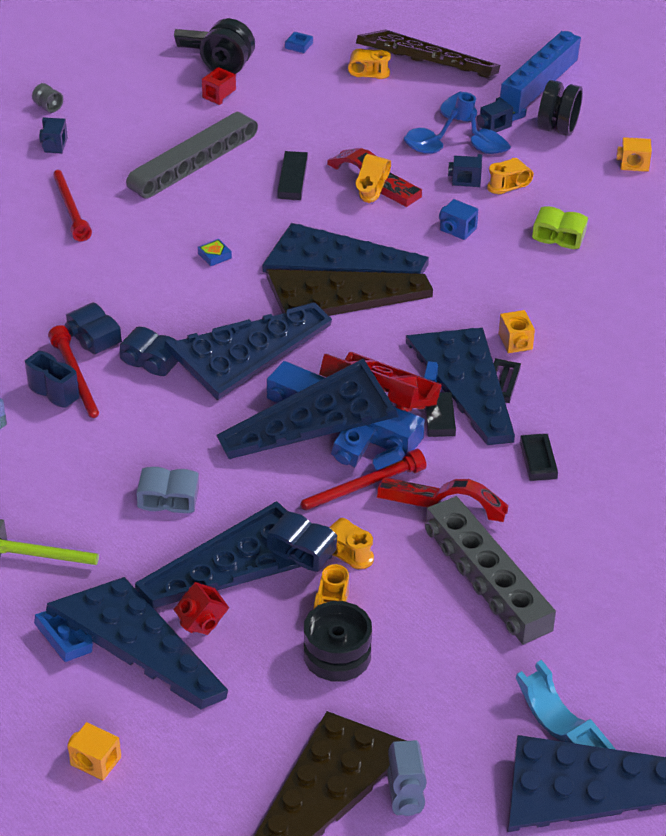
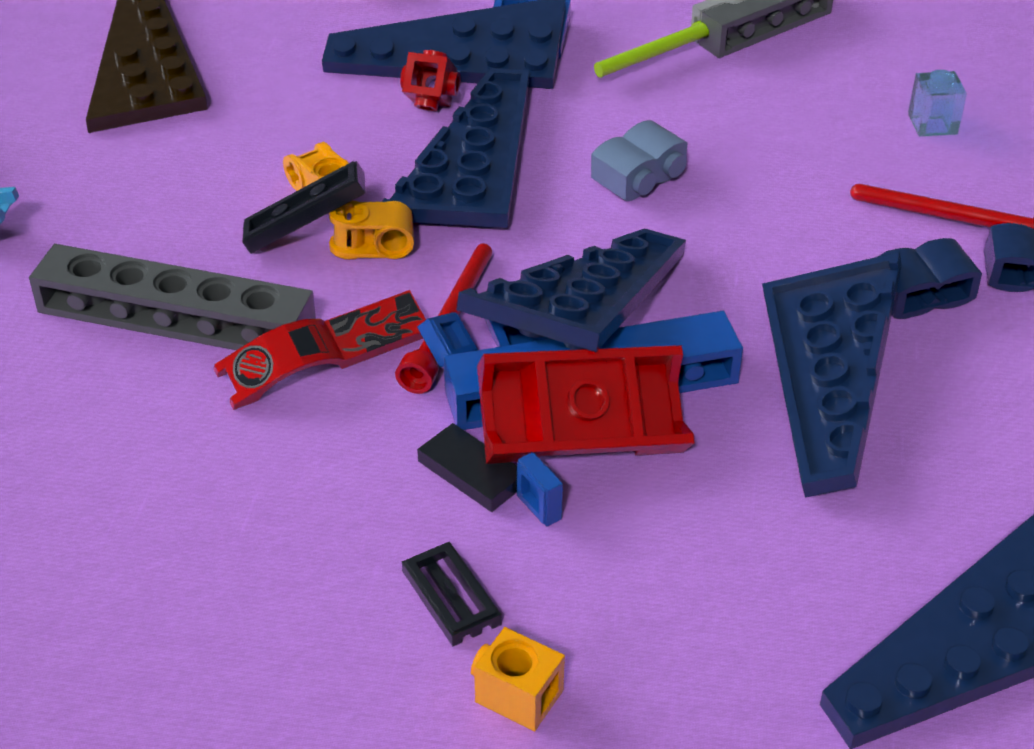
camera: 135 degrees right, 0 degrees up
(52, 379) = (944, 162): dark blue brick -> none
(302, 541) = (407, 168): dark blue brick -> none
(337, 641) = (254, 127): black wheel -> none
(345, 291) = (878, 562): dark brown wing -> none
(375, 562) = (303, 206): none -> black tile
(406, 777) = (53, 65): sand blue brick -> none
(470, 375) = (536, 567): dark blue wing -> none
(538, 457) = (264, 503): black tile -> none

